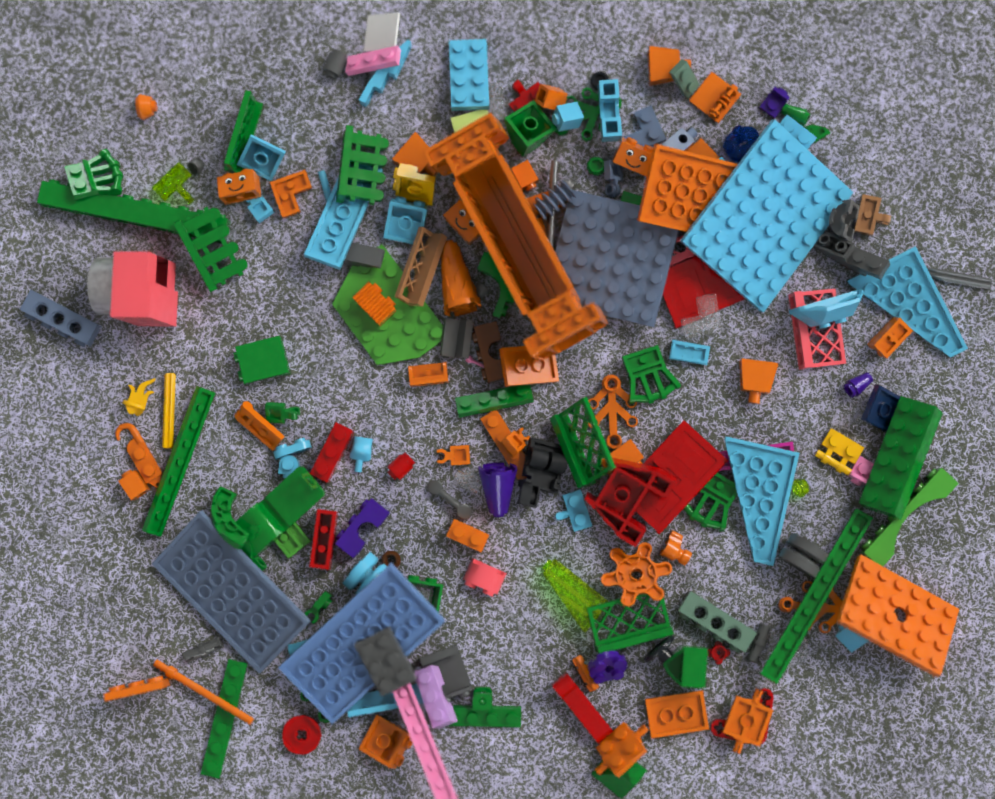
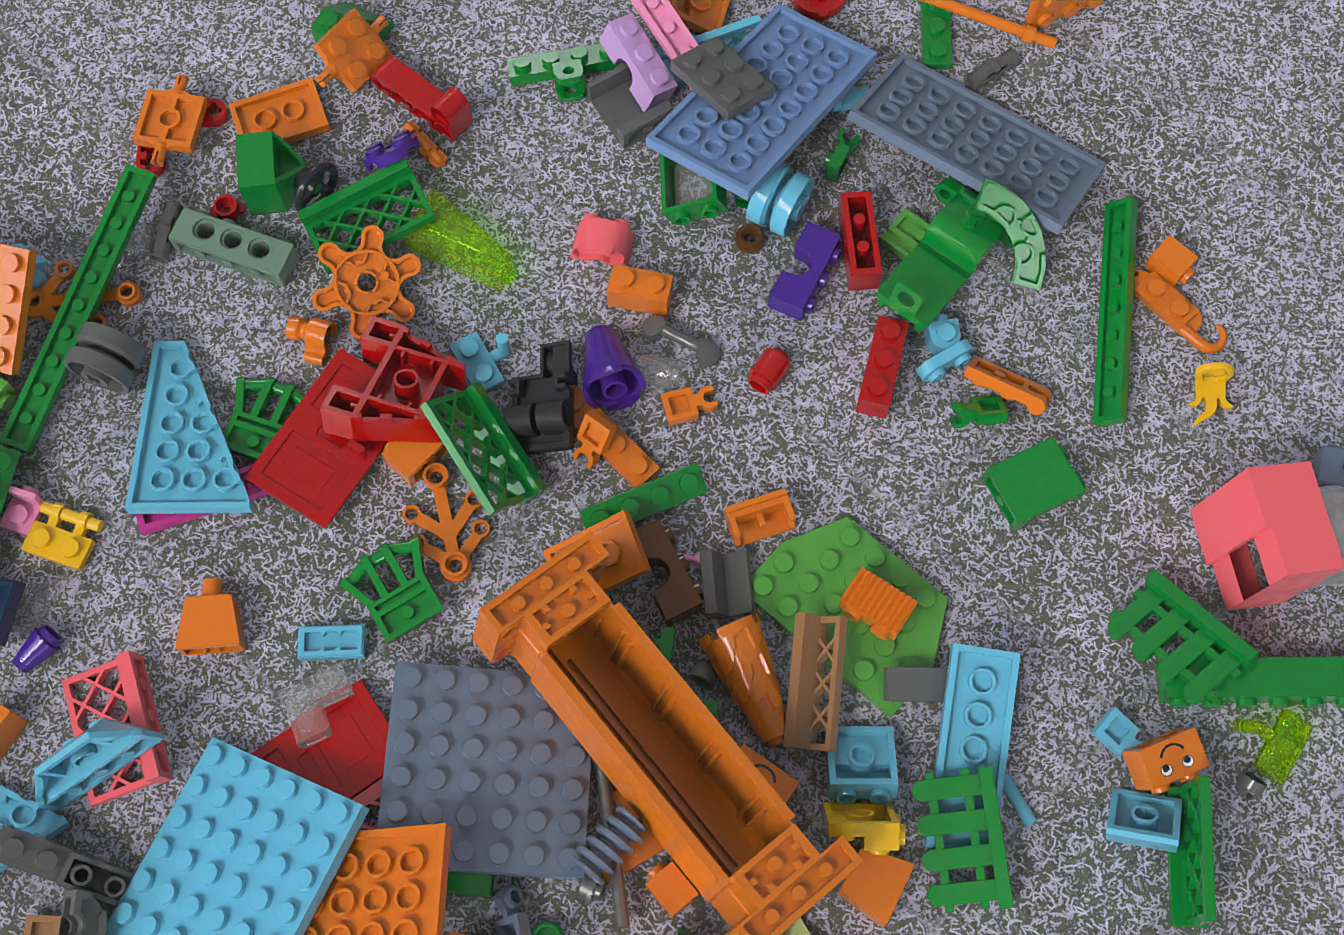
camera: 165 degrees right, 15 degrees down
(168, 410) = (1156, 383): yellow axle -> none
(286, 189) = (1083, 772): orange plate -> none
(360, 451) = (837, 383): medium azure piece -> none
(800, 487) = (120, 465): clear neon green plate -> none

